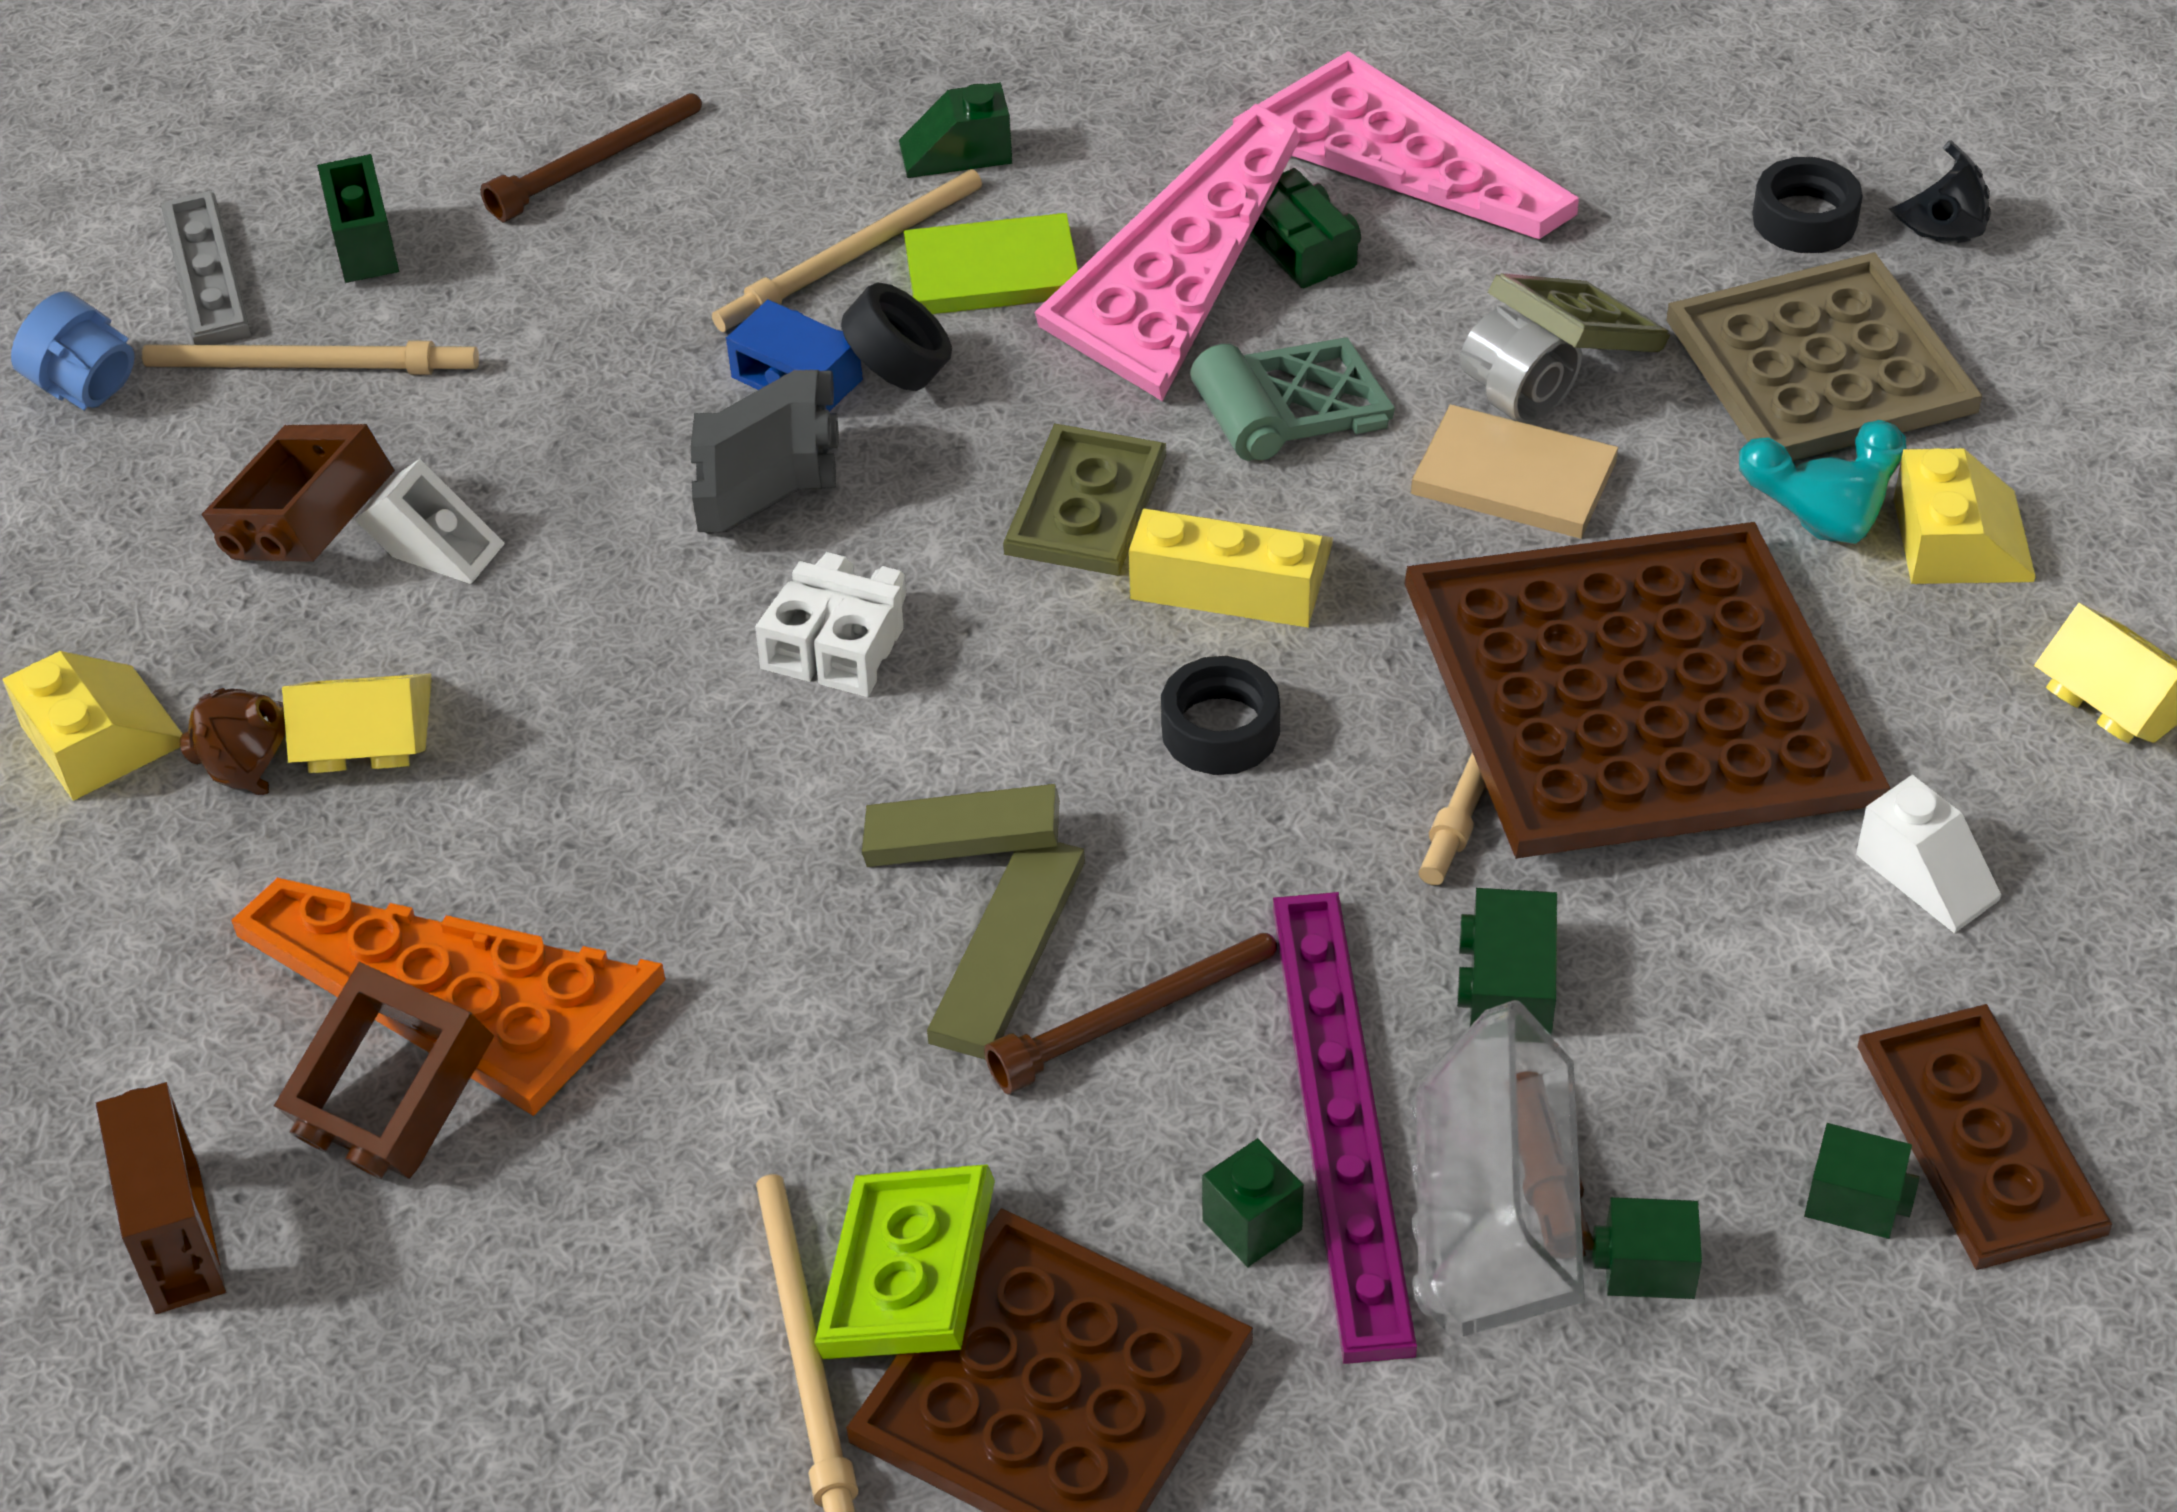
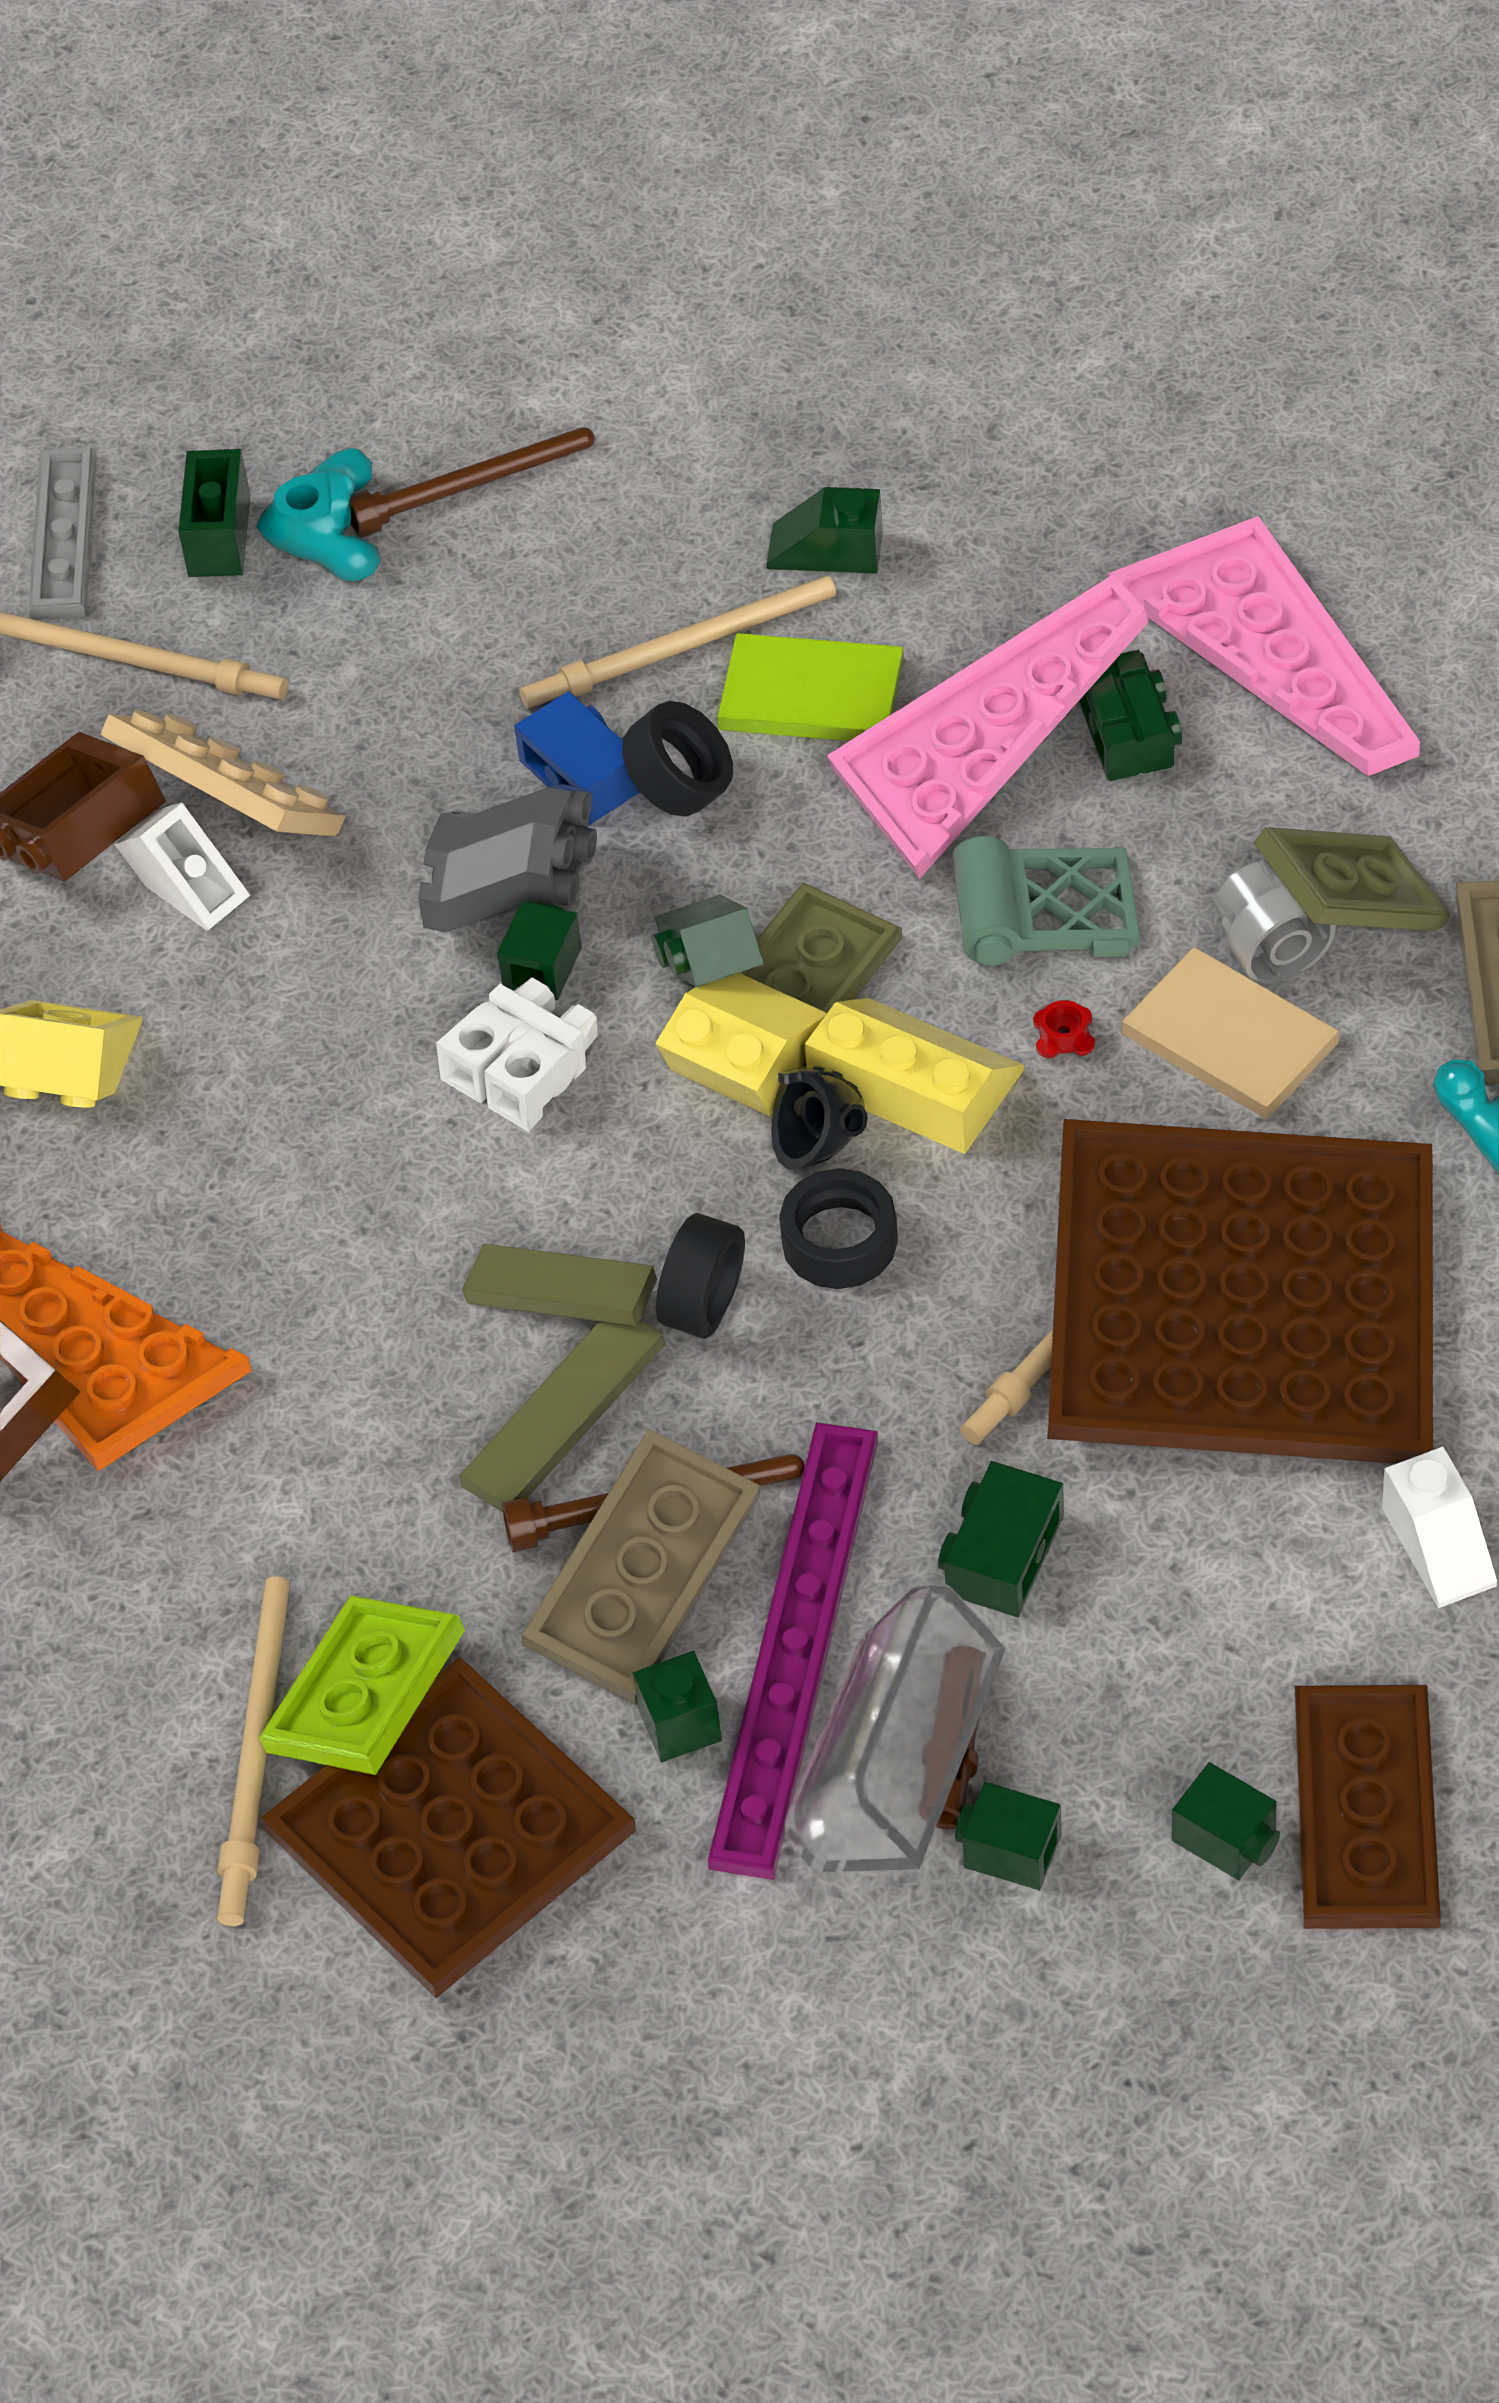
camera: 20 degrees right, 5 degrees up
(447, 430) = (218, 771): none -> tan plate
(456, 206) = (315, 510): none -> teal head
(821, 522) = (540, 946): none -> dark green brick
(992, 482) = (706, 940): none -> brick
(1056, 568) = (738, 1038): none -> light yellow slope
(1108, 782) = (700, 1275): none -> black tyre
(1157, 1074) = (641, 1564): none -> dark tan plate
(1166, 621) = (829, 1118): none -> black helmet
(1358, 498) = (1059, 1016): none -> red plate

